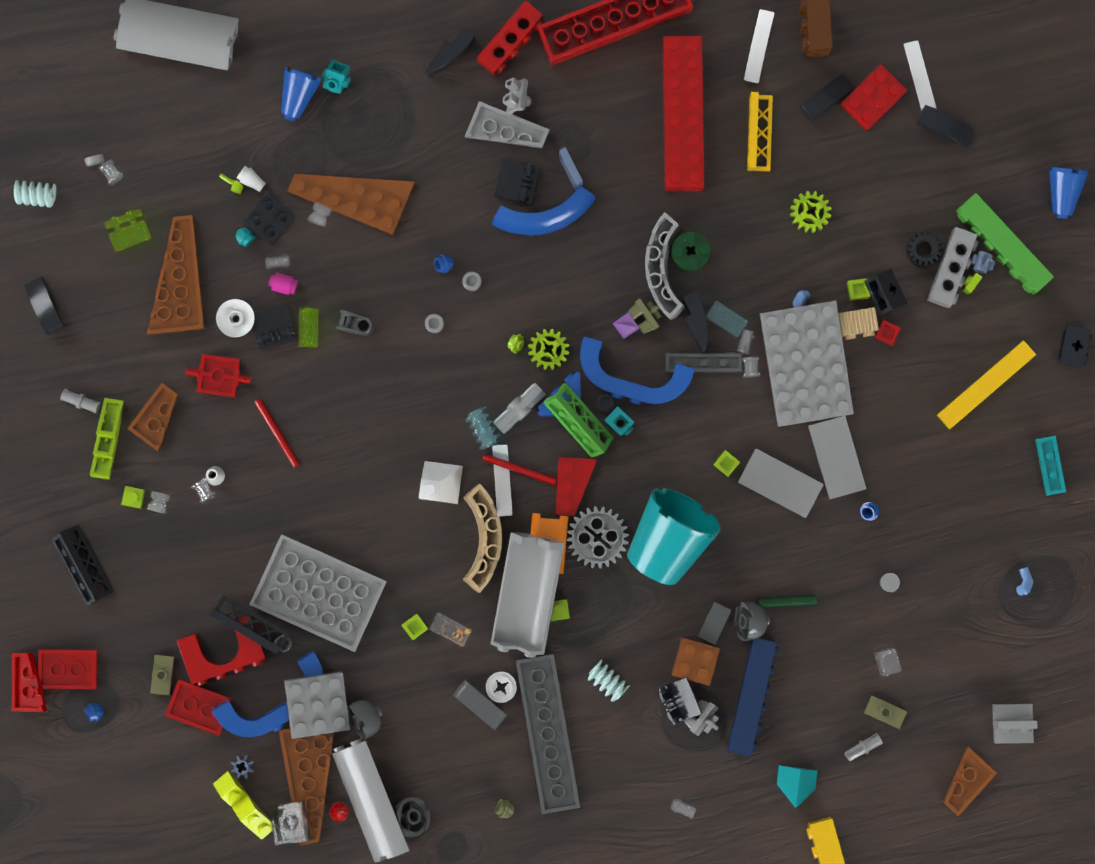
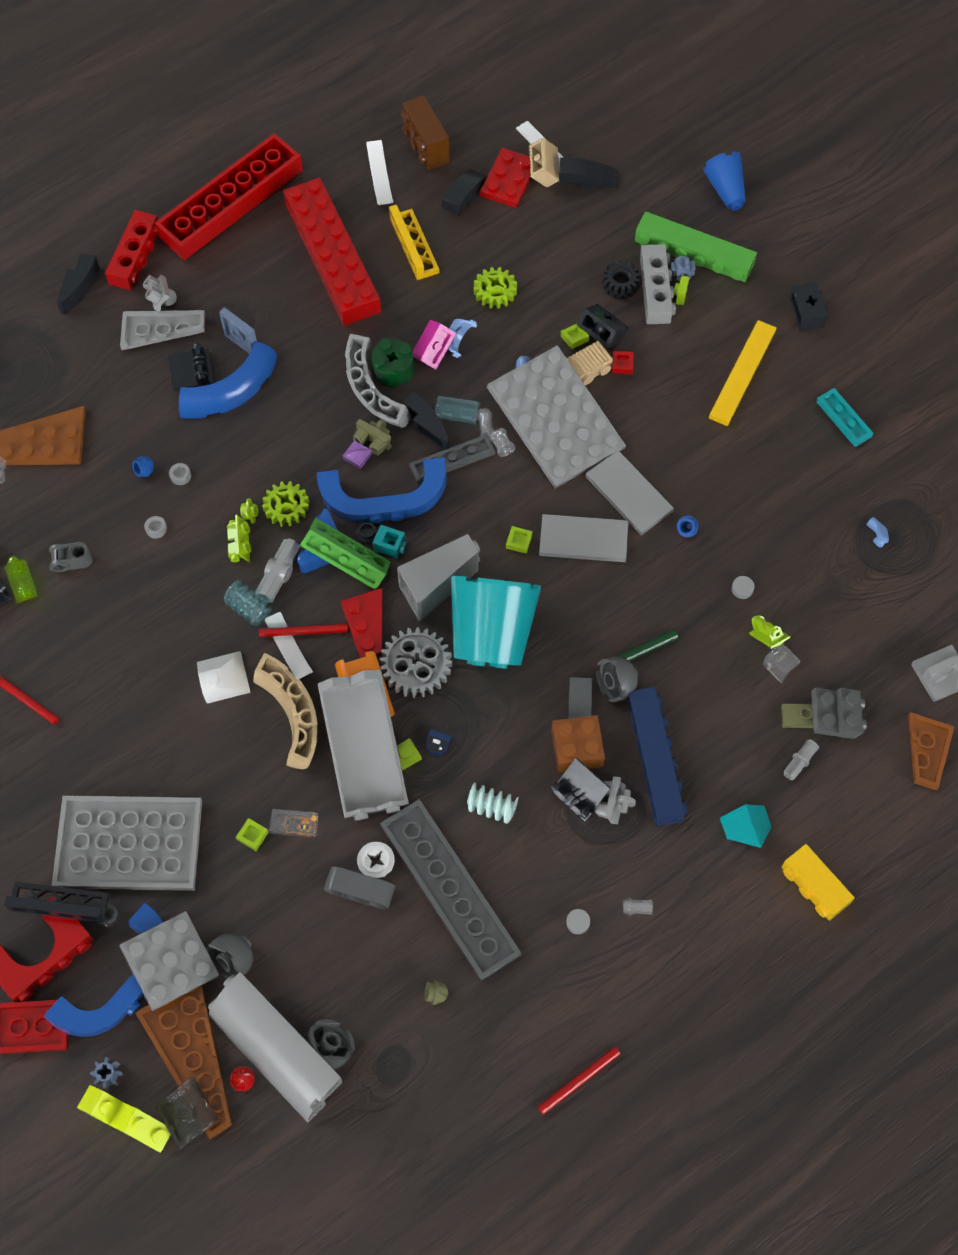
camera: 20 degrees left, 20 degrees down
(496, 374) = (238, 531): none -> lime hinge
(587, 611) = (437, 742): none -> tile
(633, 799) = (578, 921): none -> light grey tile
(646, 471) = (428, 577): none -> light grey slope
(731, 248) = (433, 344): none -> dark pink panel
(752, 246) = (463, 326): none -> light blue helmet
(888, 634) = (767, 632): none -> lime hinge
(910, 100) = (544, 162): none -> tan brick
(911, 723) = (838, 712): none -> dark grey plate

